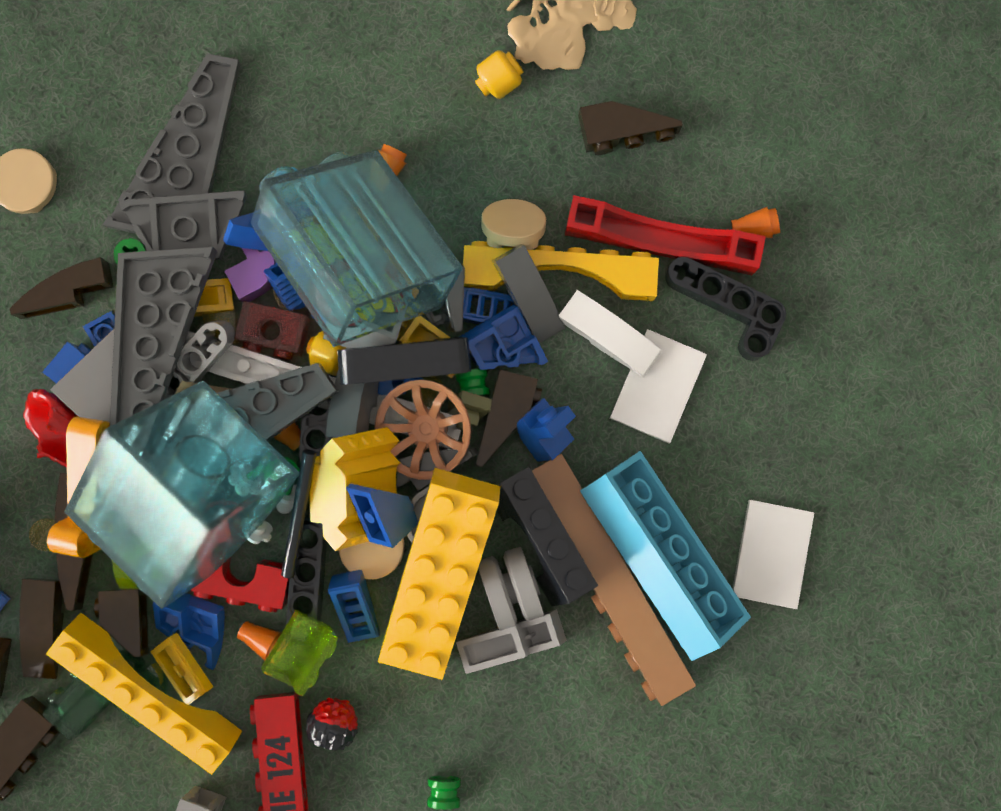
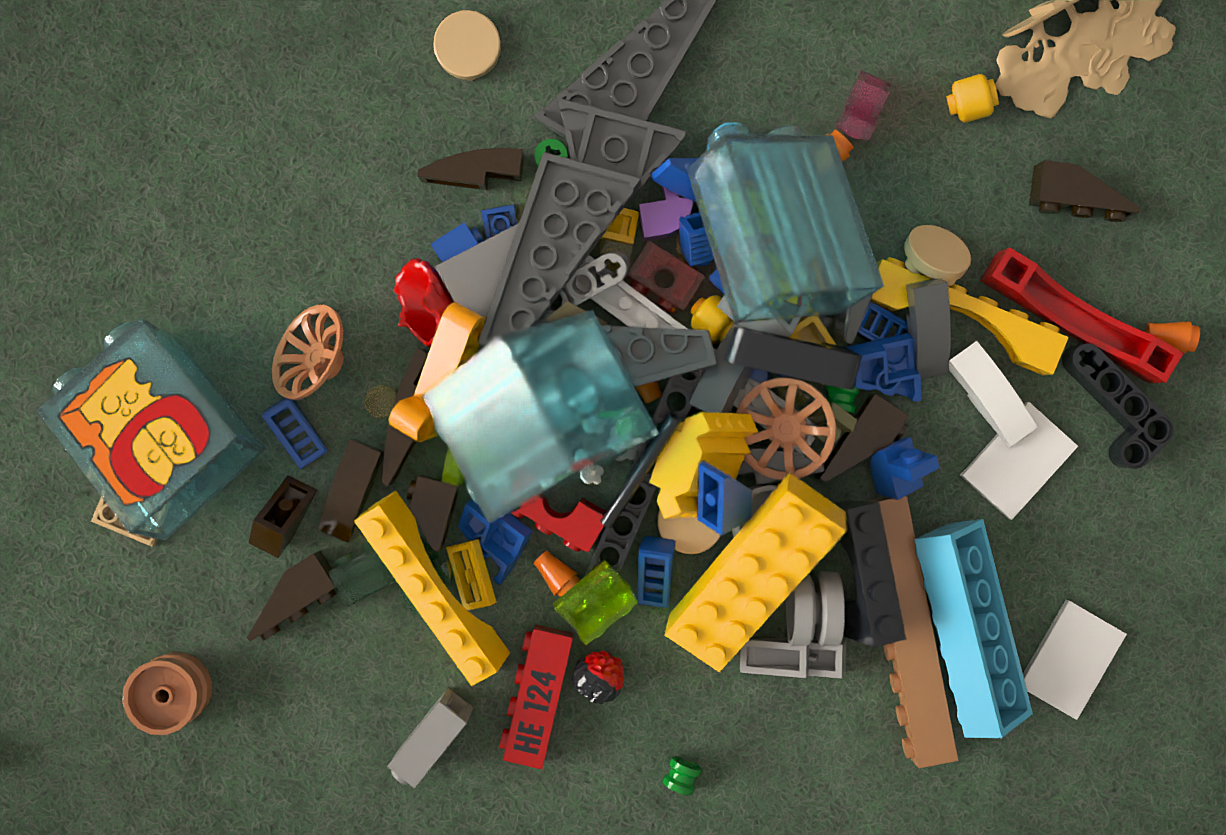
camera: 20 degrees right, 5 degrees up
(401, 114) = (863, 106): none -> clear pink brick

